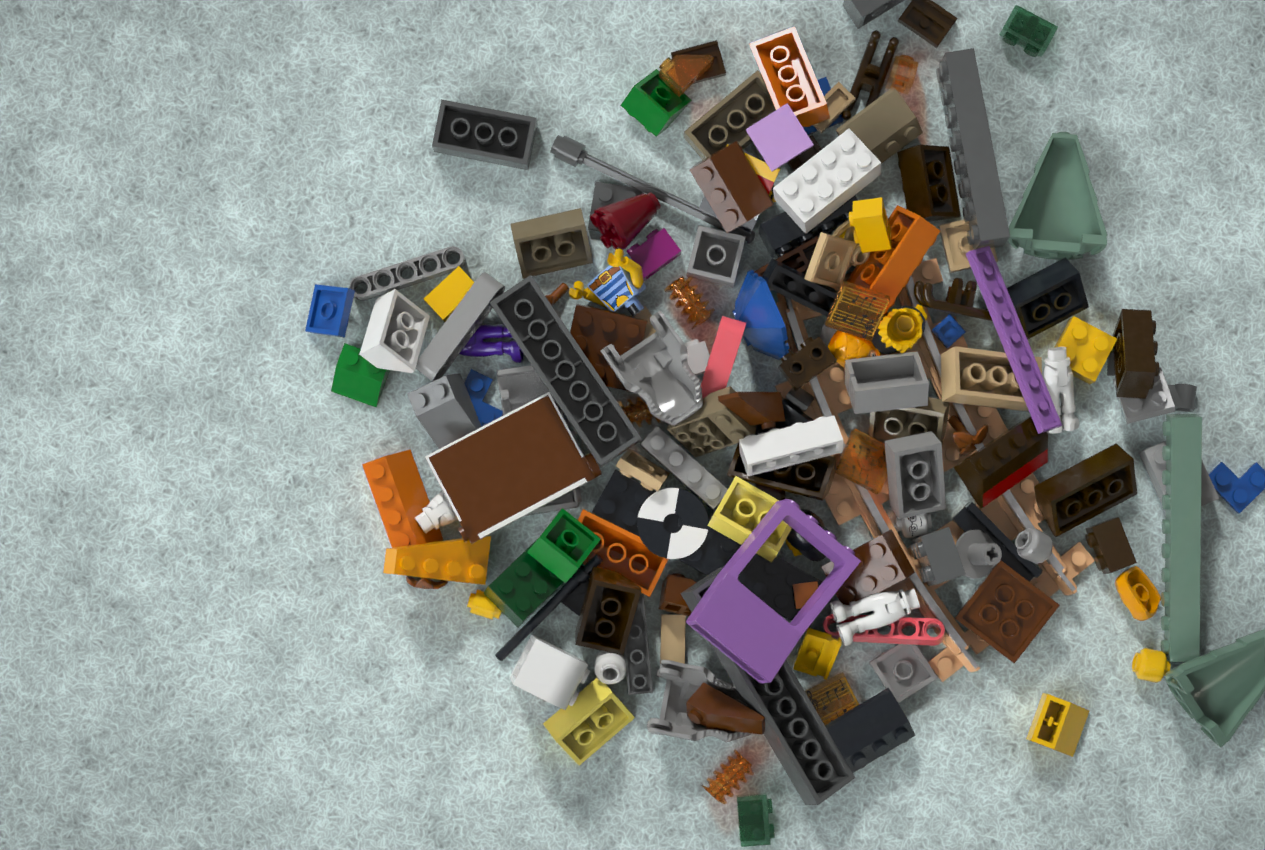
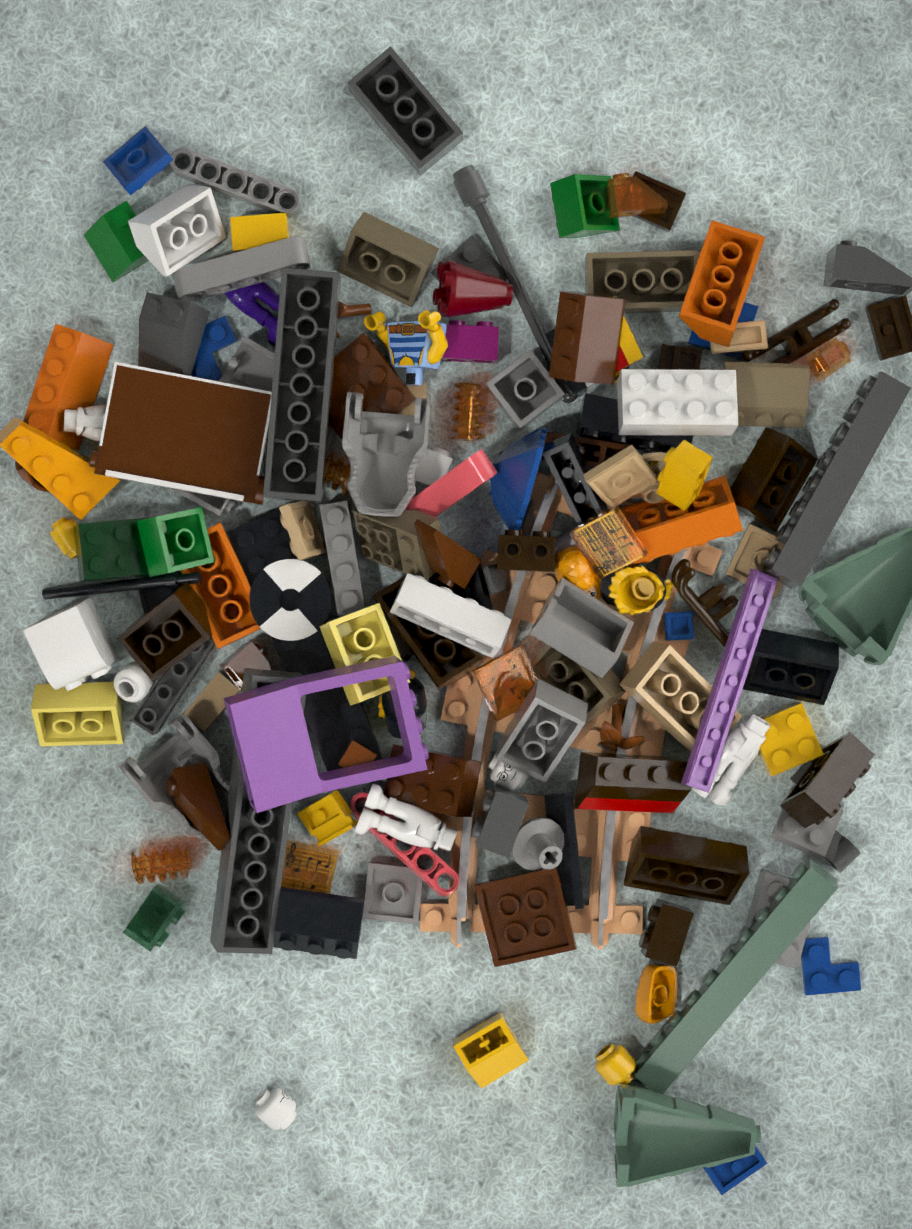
camera: 30 degrees right, 5 degrees up
(779, 137) = (665, 327): lavender tile -> none
(1034, 545) = (595, 878): light grey head -> none

